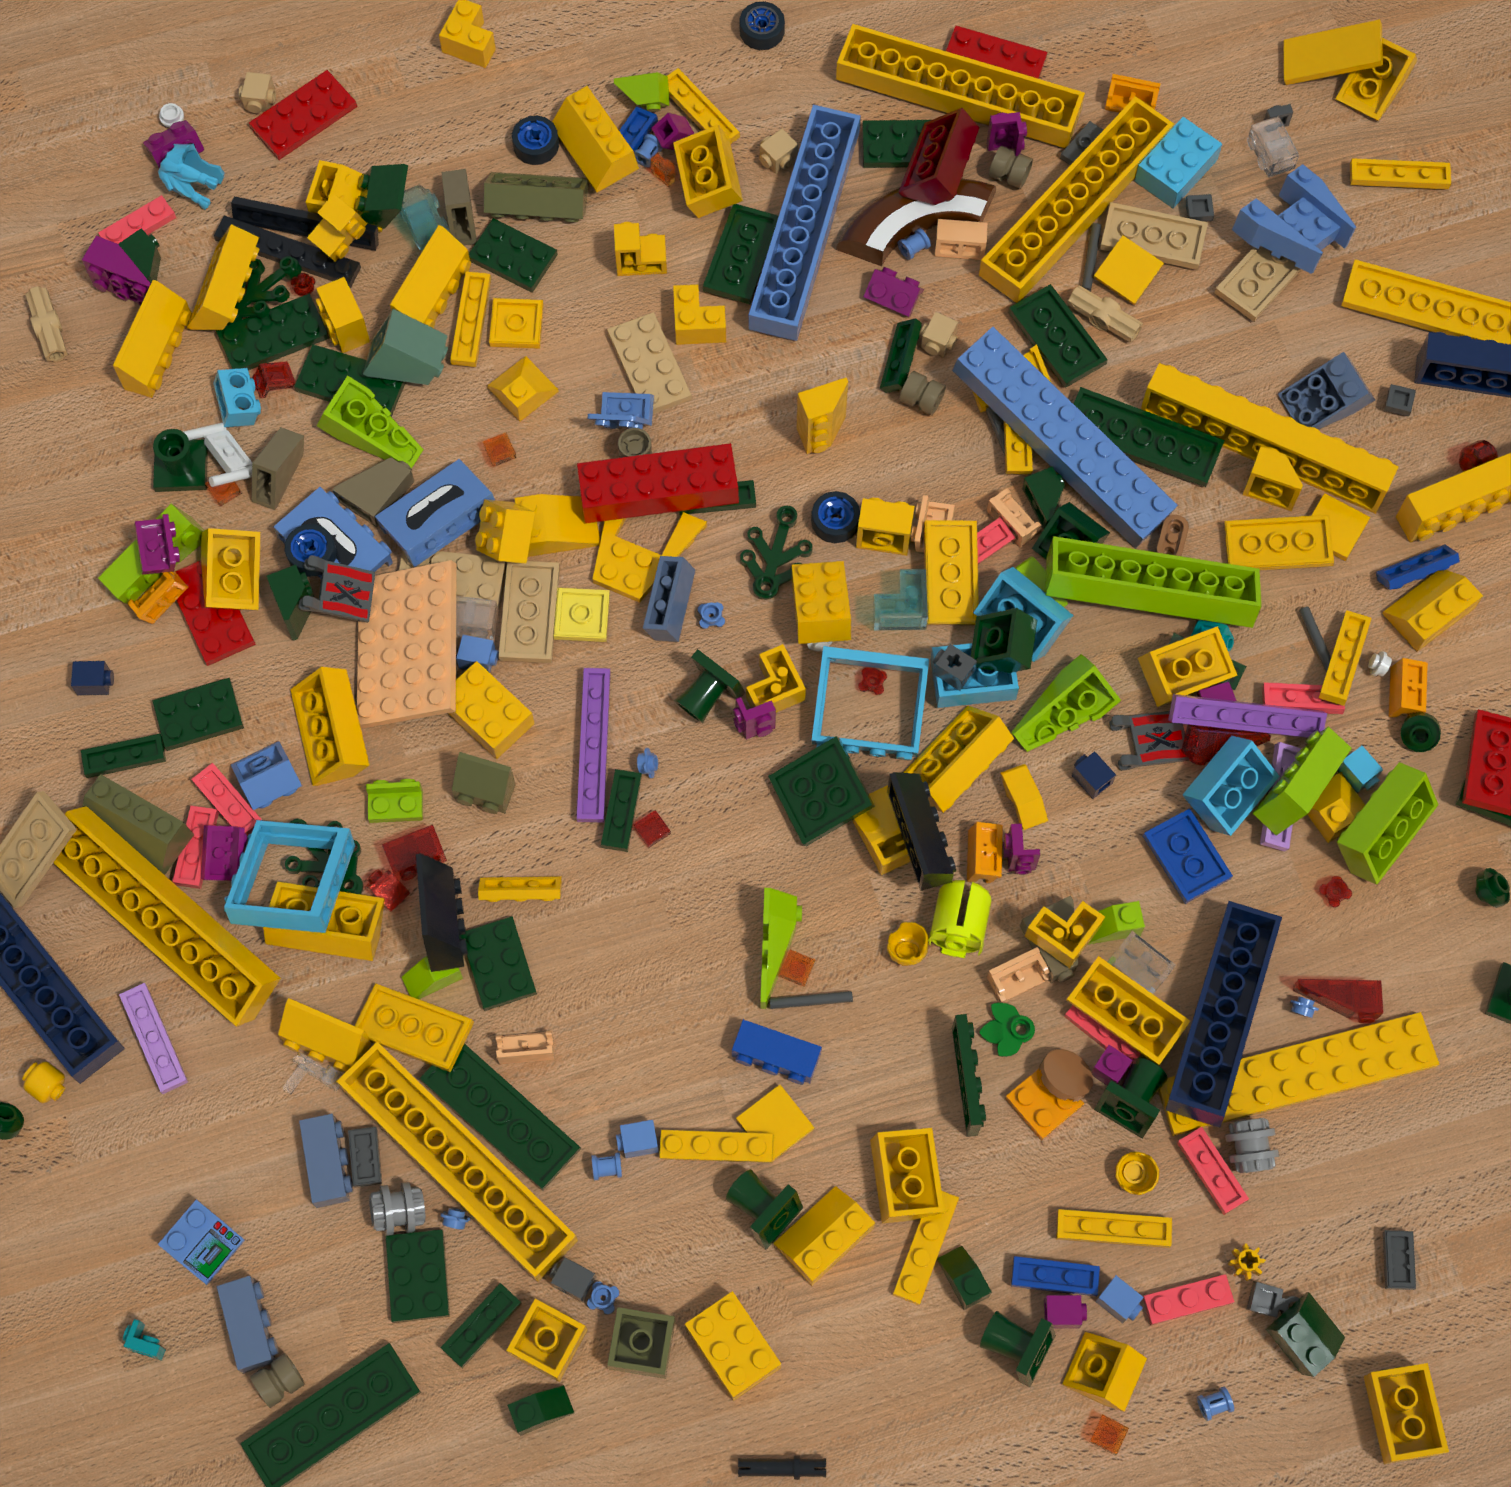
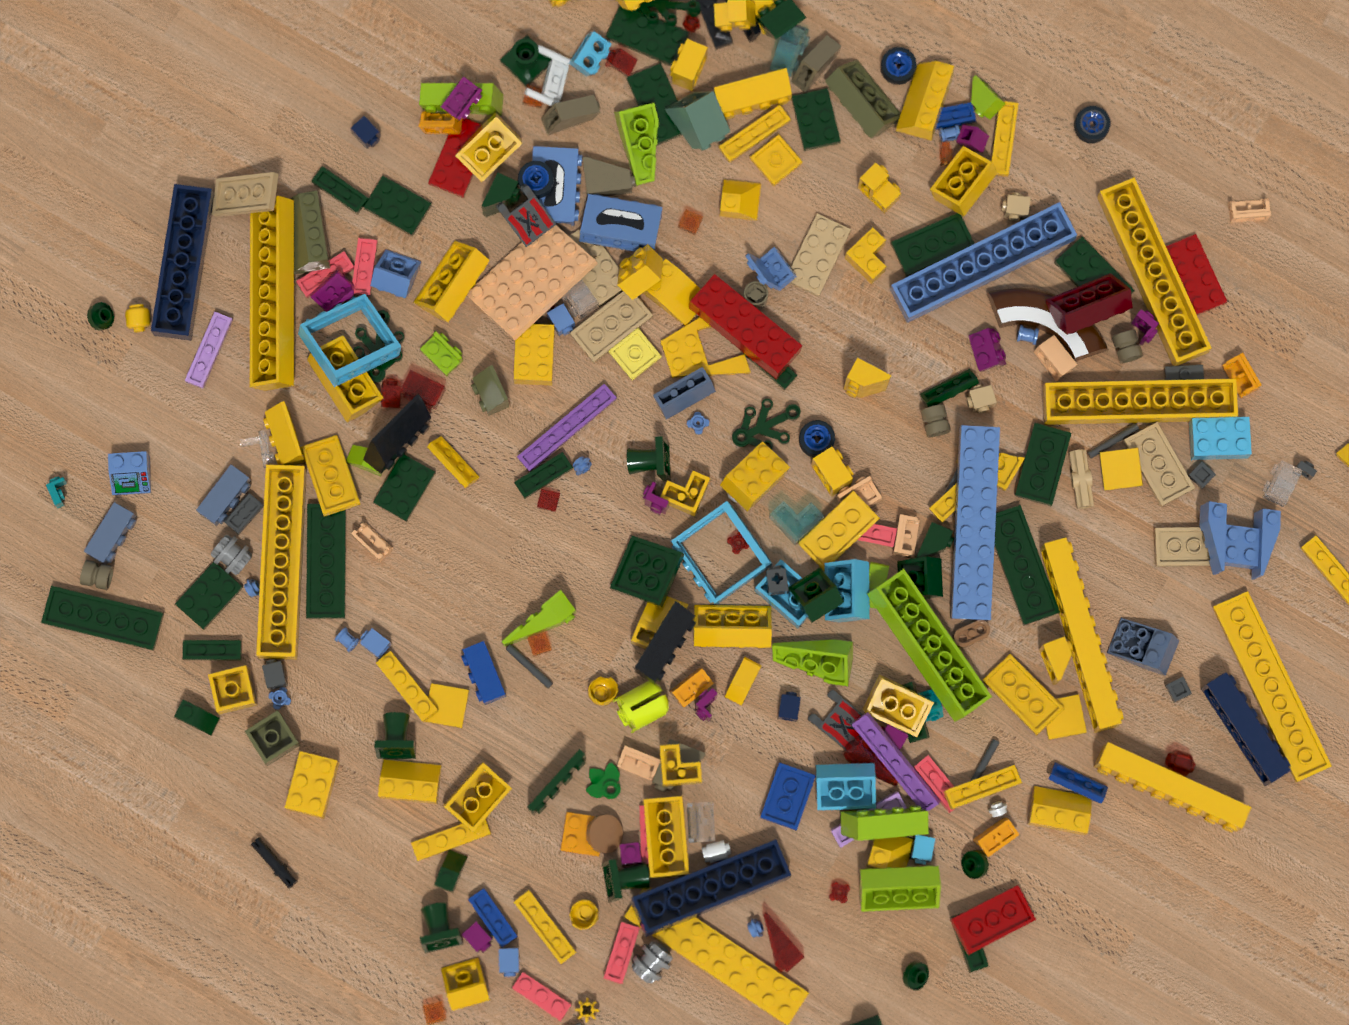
camera: 45 degrees right, 10 degrees up
(1119, 922) = (714, 789): lime slope -> none
(1185, 977) = (716, 851): none -> white brick

